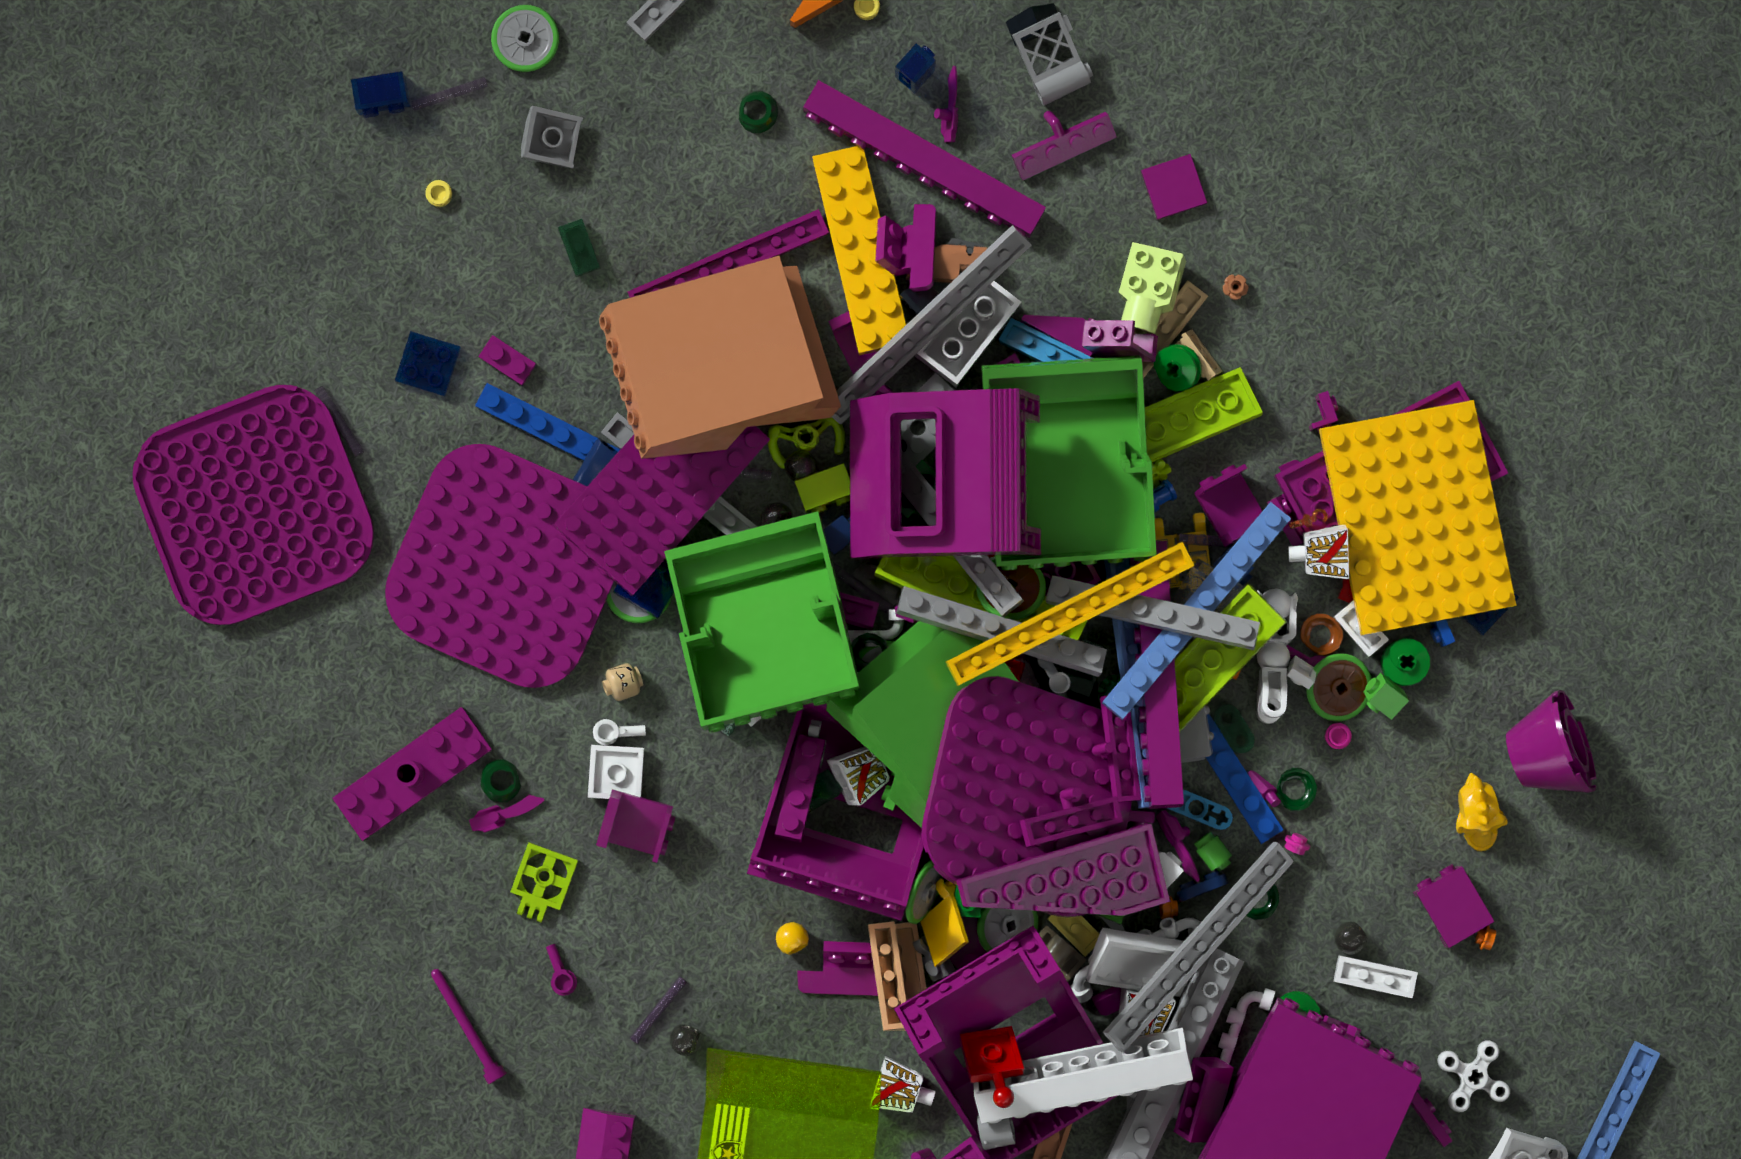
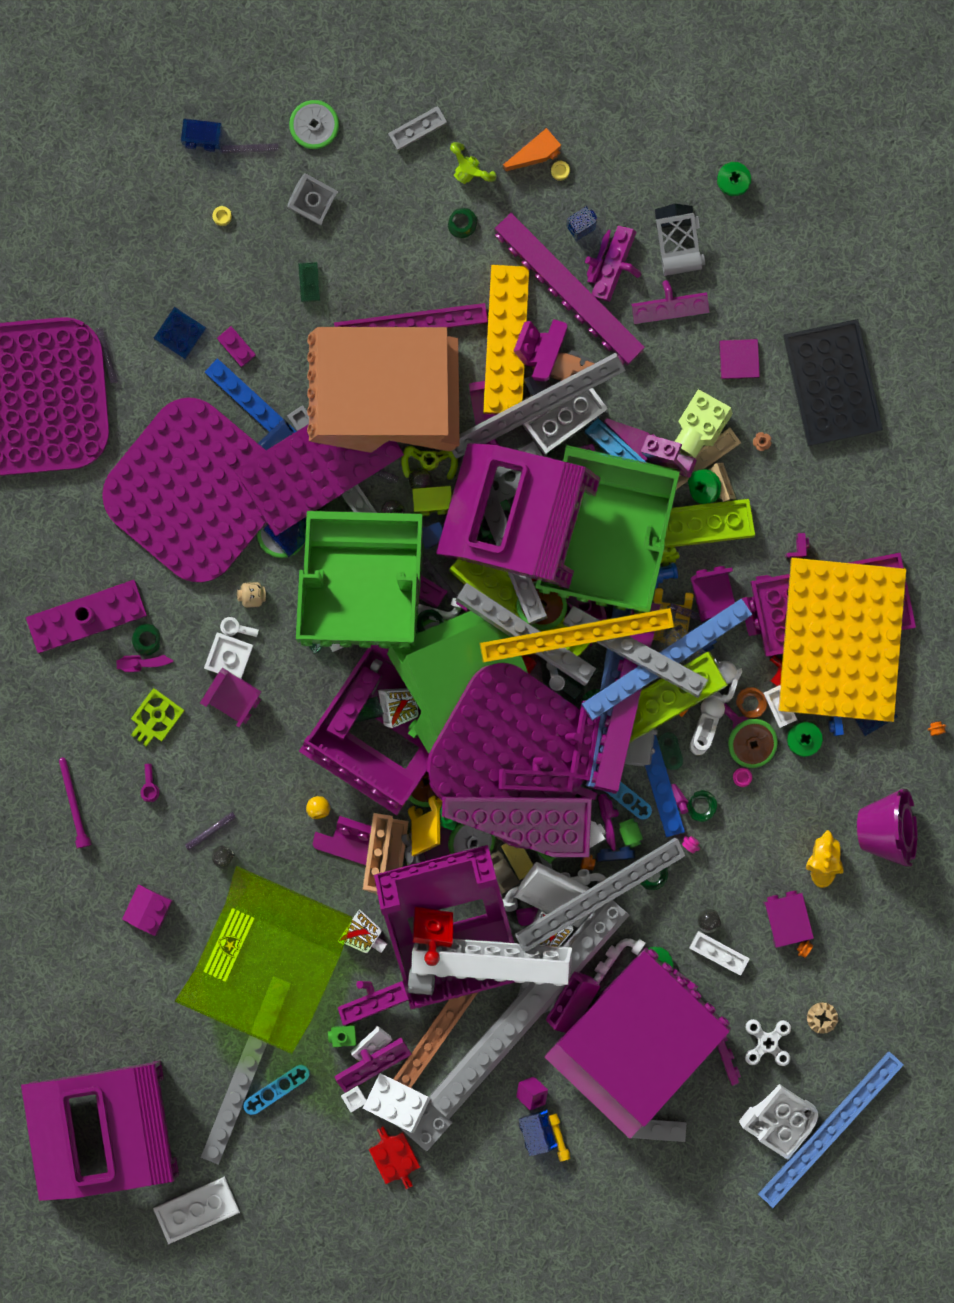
camera: 15 degrees right, 0 degrees up
(745, 35) = (468, 166): none -> lime piece
(922, 893) = (417, 802): wheel -> none
(974, 107) = (615, 263): none -> magenta plate
(1301, 672) = (728, 725): white plate -> none
(1305, 182) = (832, 382): none -> black plate
(1308, 520) = (764, 619): clear orange hand -> none
(1323, 552) = (768, 645): torso -> none
(1385, 696) = (783, 758): bright green brick -> none
(1526, 1013) = (818, 1009): none -> tan gear
(1574, 598) = (937, 728): none -> orange plate

